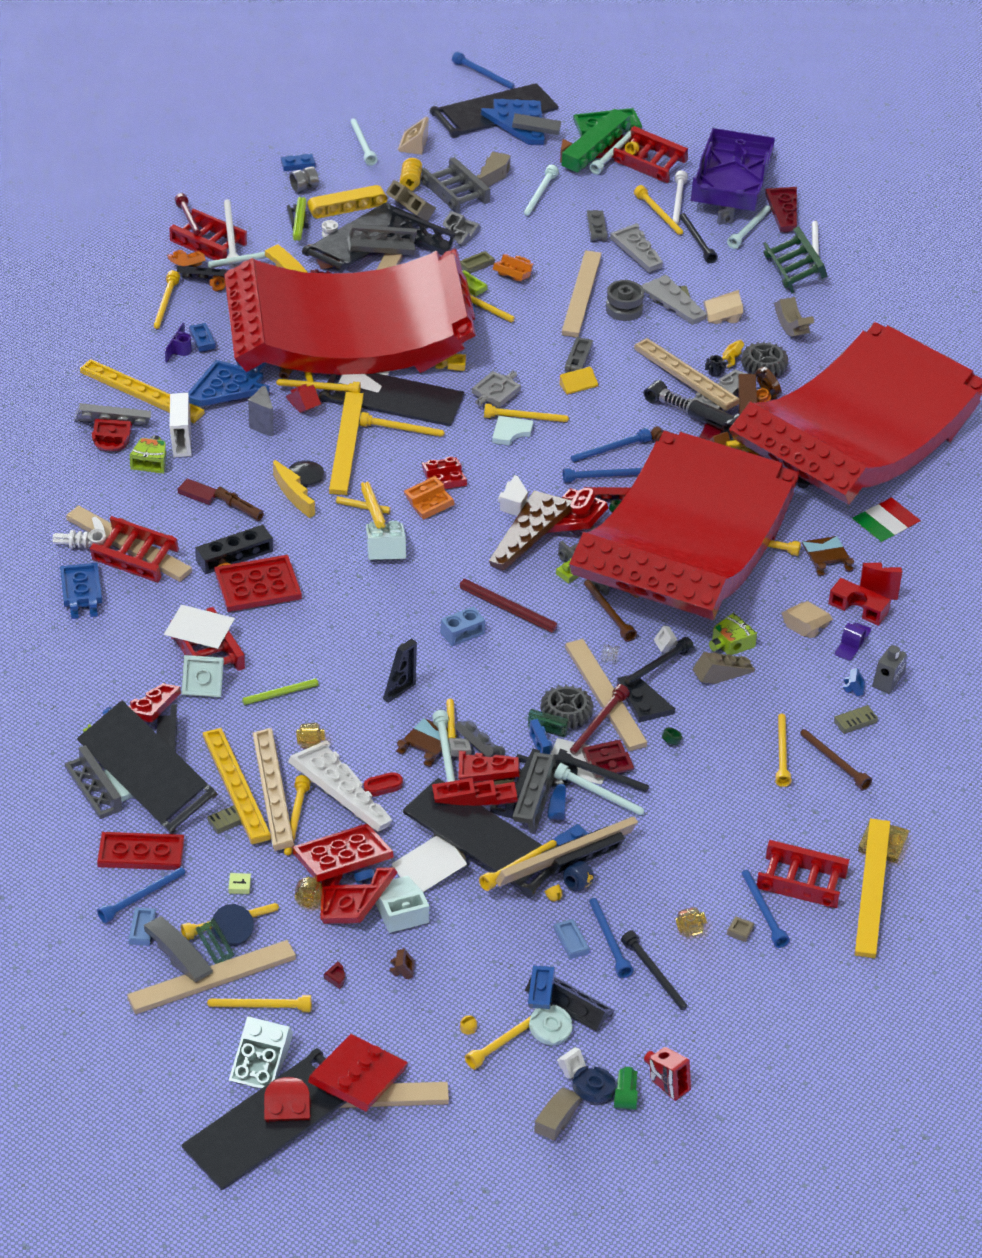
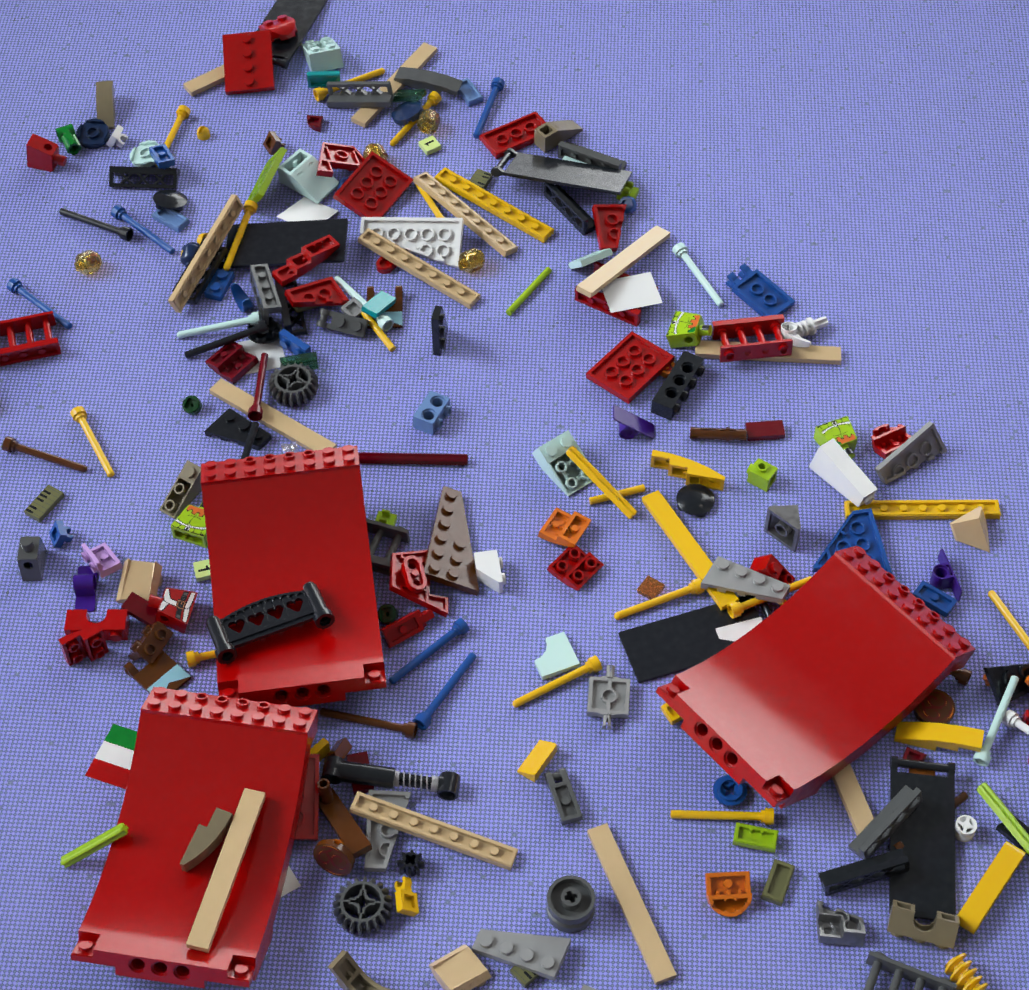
camera: 150 degrees right, 10 degrees up
(108, 817) = (551, 133): none -> dark tan slope
(109, 653) = (681, 251): none -> light aqua piece
(121, 358) = (972, 529): none -> tan slope
(175, 654) = (623, 261): none -> tile
(181, 580) = (687, 330): none -> lime torso
(219, 897) = (428, 121): none -> clear yellow head
(237, 459) = (762, 474): none -> lime brick
(268, 966) = (360, 98): none -> dark grey fence
(287, 1016) = (320, 78): none -> teal tile
(305, 537) = (631, 425): none -> dark purple piece
(333, 396) = (730, 576): none -> light grey wing
(366, 756) = (419, 268): none -> tan tile
(399, 437) = (650, 588): none -> clear orange tile
(435, 731) = (378, 304): none -> tile
(447, 912) = (267, 175): none -> lime tile
(560, 951) = (170, 200): none -> black dish
(687, 492) = (228, 640): none -> black piece
(740, 929) = (49, 283): dark tan tile -> none
(745, 605) = (202, 570): none -> yellowish green tile
(788, 579) = (174, 607): none -> red torso
(815, 594) = (138, 609): none -> dark red tile
(824, 569) = (151, 643): none -> reddish brown bracket
(830, 642) = (101, 559): none -> lavender bracket
(853, 375) = (226, 870): none -> tan tile
(857, 401) = (206, 839): none -> dark tan slope
(939, 452) = (94, 845): none -> lime axle

